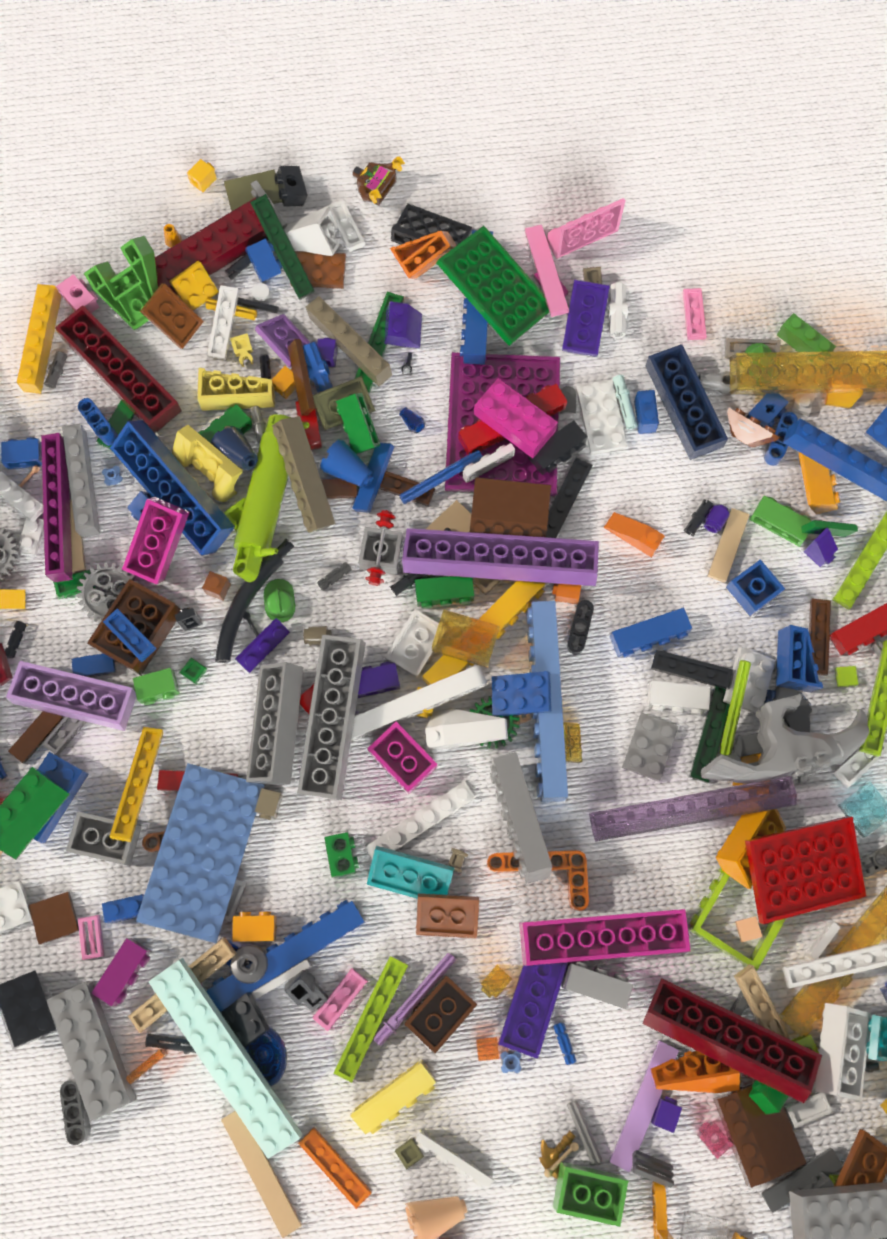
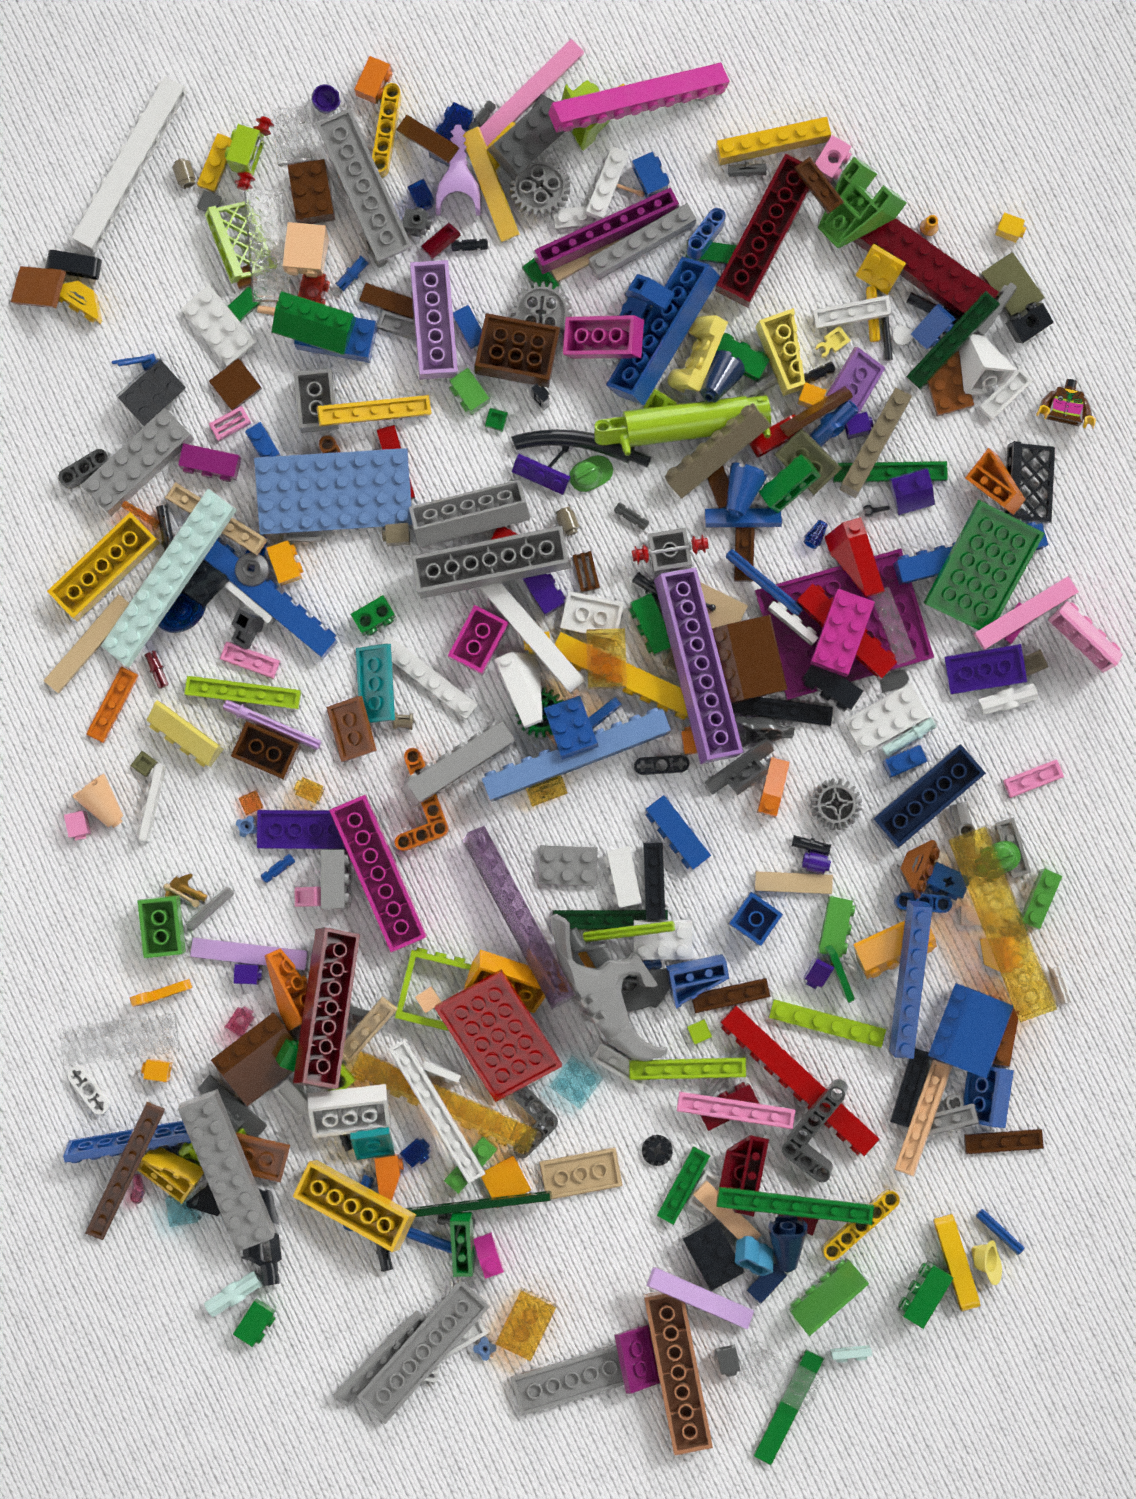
camera: 75 degrees right, 10 degrees up
(96, 308) = (818, 185): none -> reddish brown tile
(117, 478) = (658, 273): medium blue plate -> none
(129, 485) = (650, 291): none -> blue slope
(129, 635) = (504, 350): blue plate -> none
(171, 316) = (839, 261): dark orange plate -> none
(186, 1127) = (103, 567): none -> yellow brick
(216, 585) = (582, 409): dark orange brick -> none
(315, 1104) = (156, 669): none -> dark red axle
(374, 635) = (582, 556): none -> reddish brown tile
(444, 389) = (853, 551): none -> red wedge
(512, 659) = (604, 712): none -> blue beam
(521, 379) = (893, 626): none -> clear tile
(578, 521) = (758, 728): none -> dark grey animal
(606, 1020) = (307, 896): none -> bright pink tile
(612, 555) = (742, 771): none -> dark grey bracket
(653, 1165) = (201, 974): dark grey tile -> none
(682, 483) = (835, 795): none -> light grey gear

